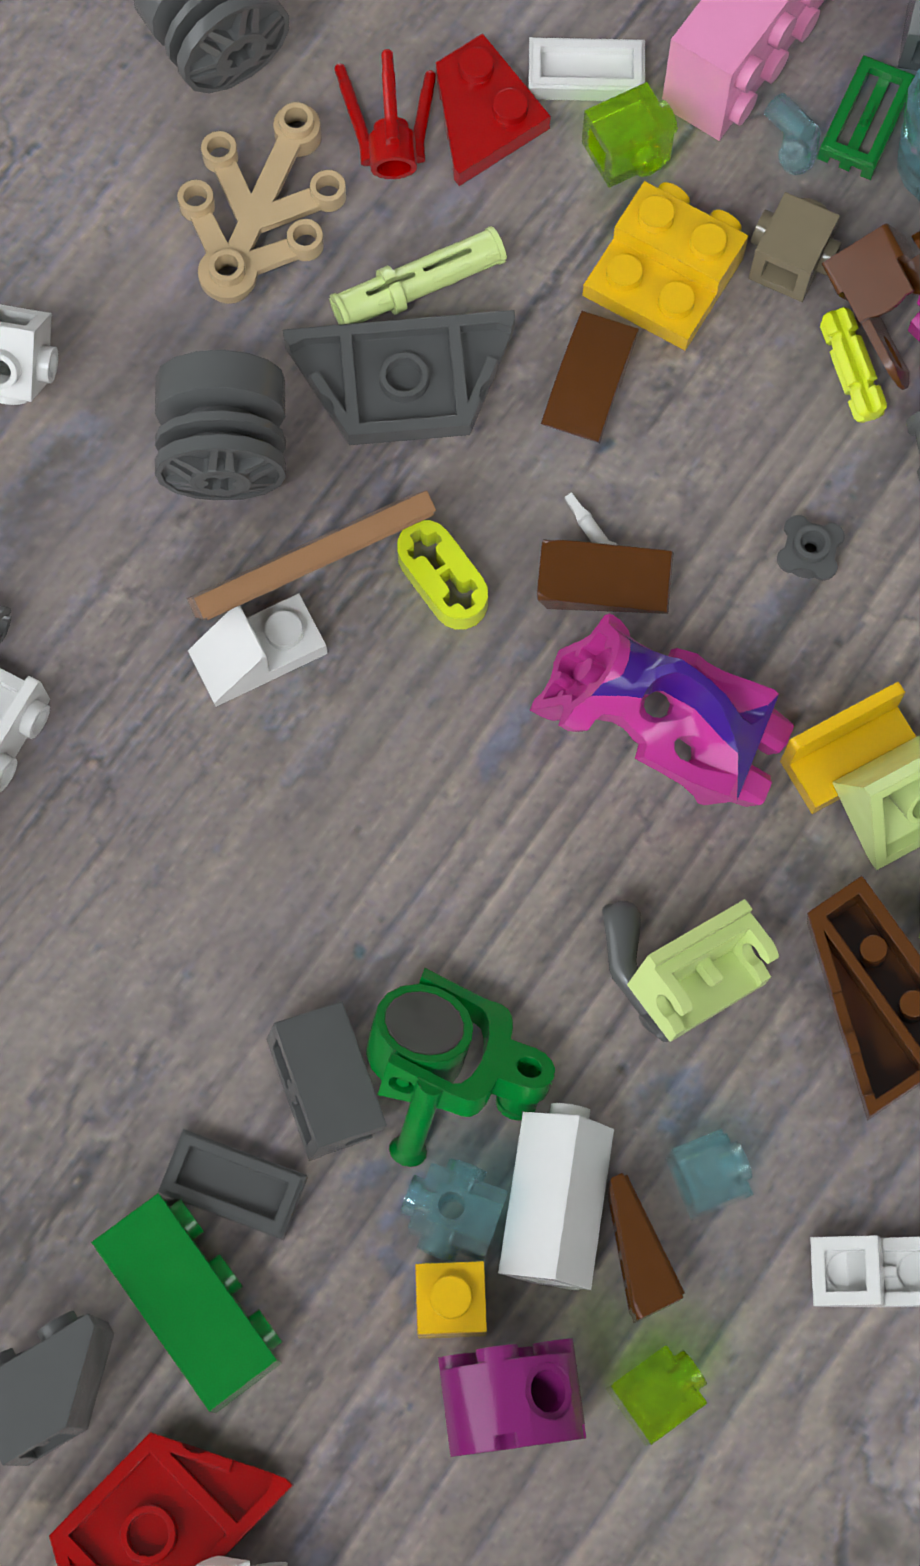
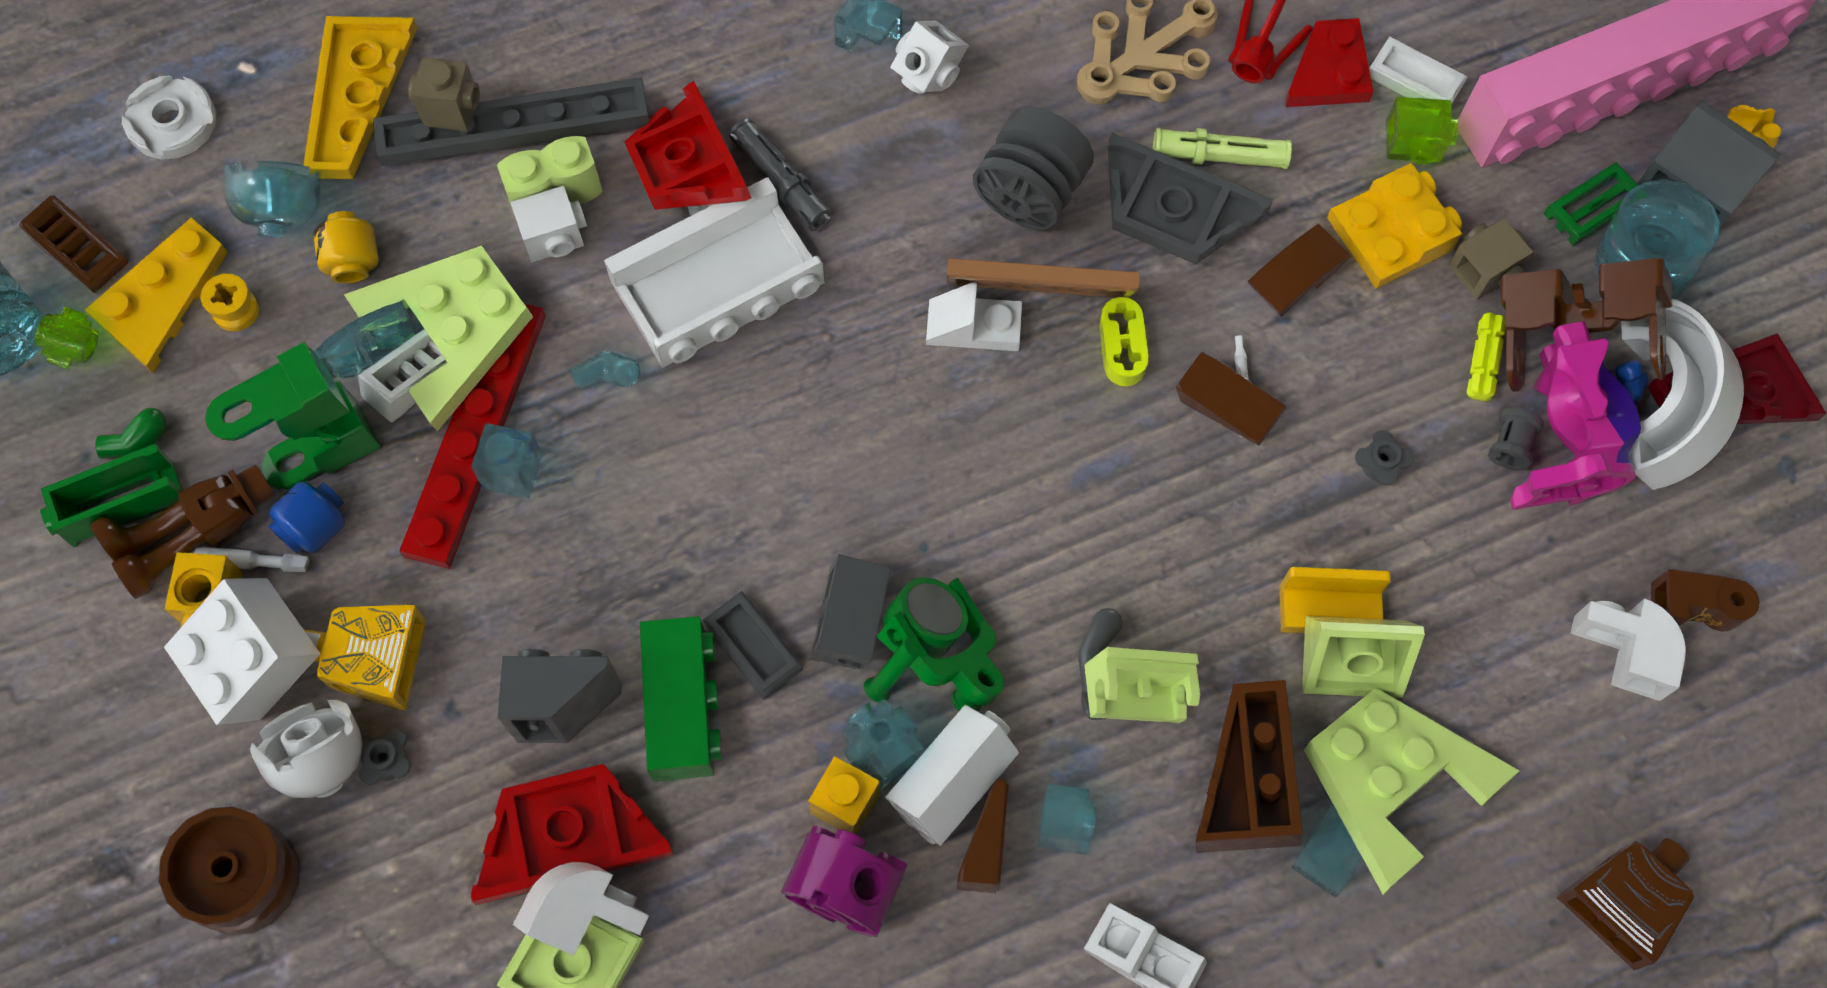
camera: 30 degrees right, 5 degrees down
(659, 1393) = (944, 939): clear neon green brick -> none
(708, 710) = (1247, 518): dark pink hips -> none
(800, 136) = (1539, 191): clear light blue arm -> none

